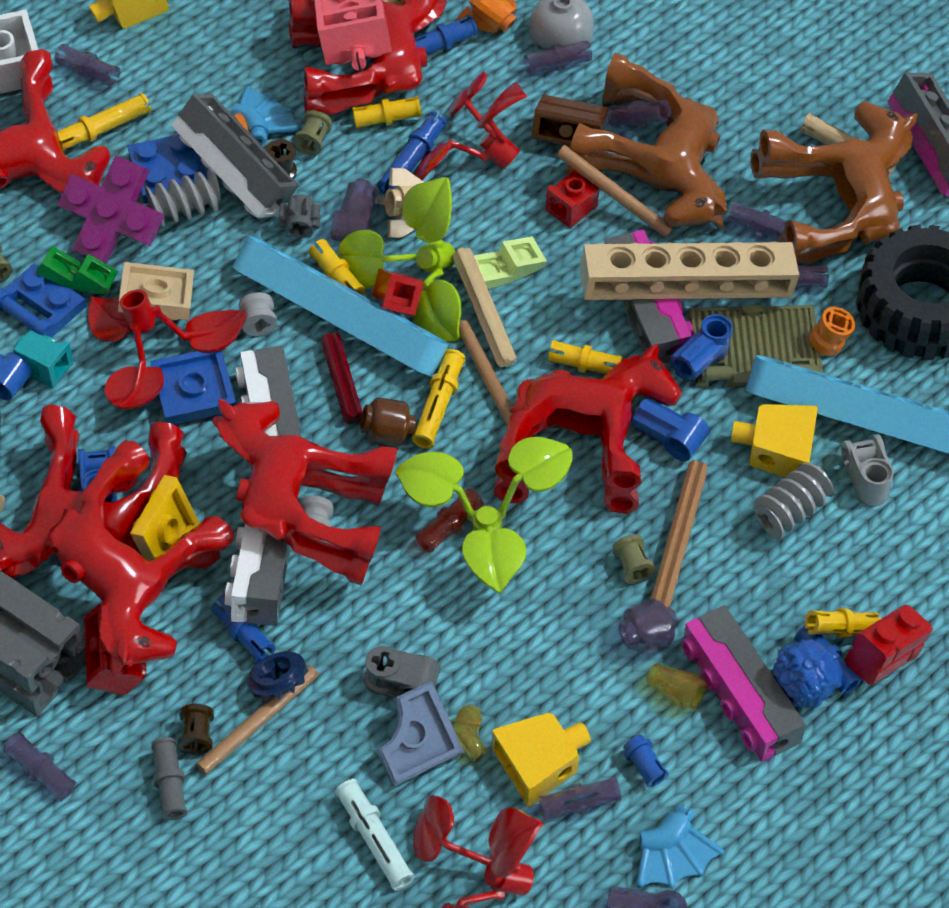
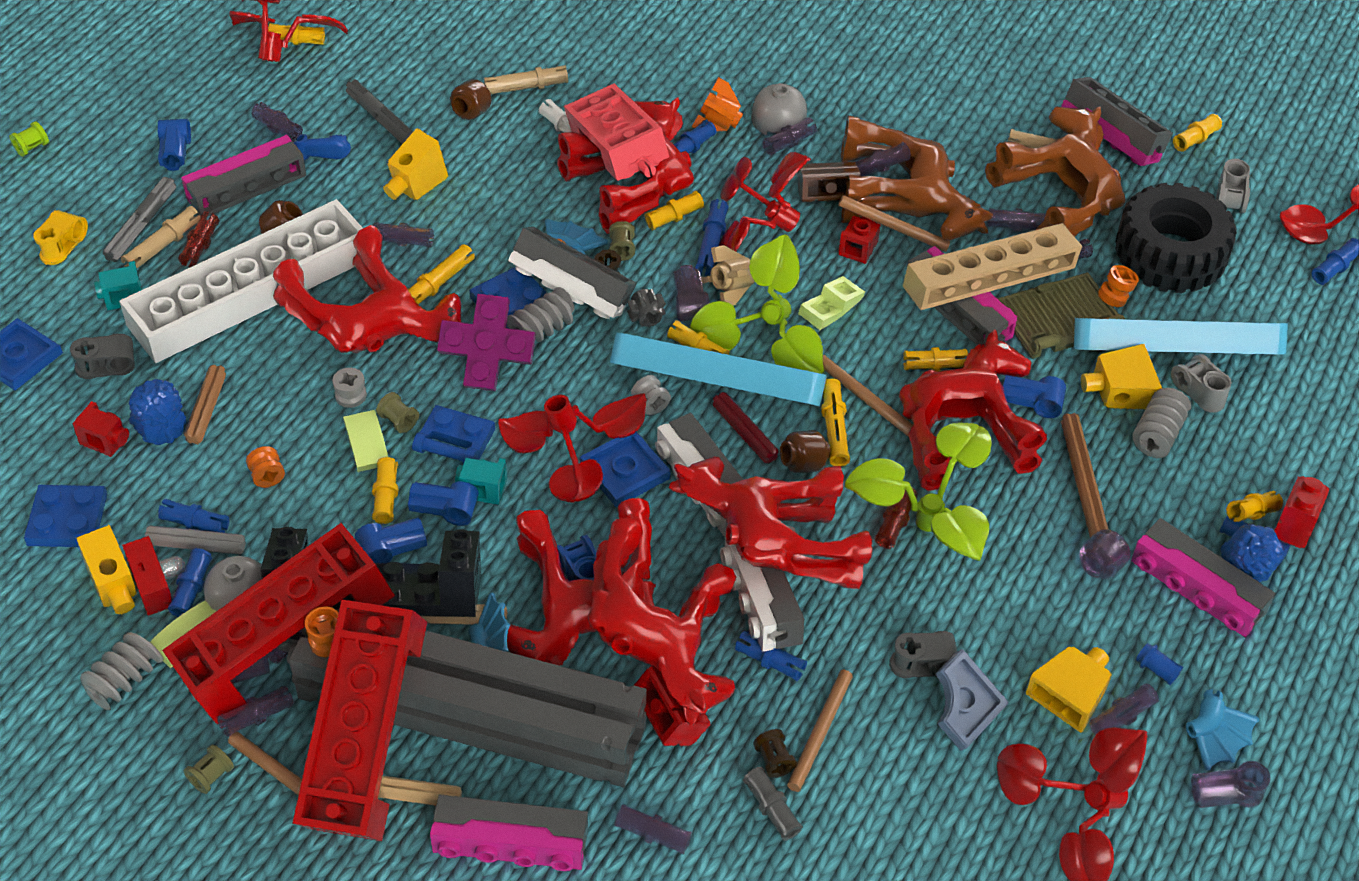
camera: 20 degrees left, 5 degrees down
(89, 276) = (485, 403): green slope -> none
(163, 519) = (667, 579): yellow plate -> none
(164, 286) = (536, 392): tan plate -> none
(263, 676) = (828, 674): dark blue gear -> none
(366, 821) = (937, 769): light aqua pin -> none
(397, 291) = (761, 344): red brick -> none
(467, 728) = (1001, 676): clear yellow arm -> none
(484, 307) = (835, 340): tan axle -> none
(633, 559) = (1061, 504): olive bush -> none
(677, 685) = (1152, 595): clear yellow cone -> none
(703, 348) = (1029, 323): blue piece -> none

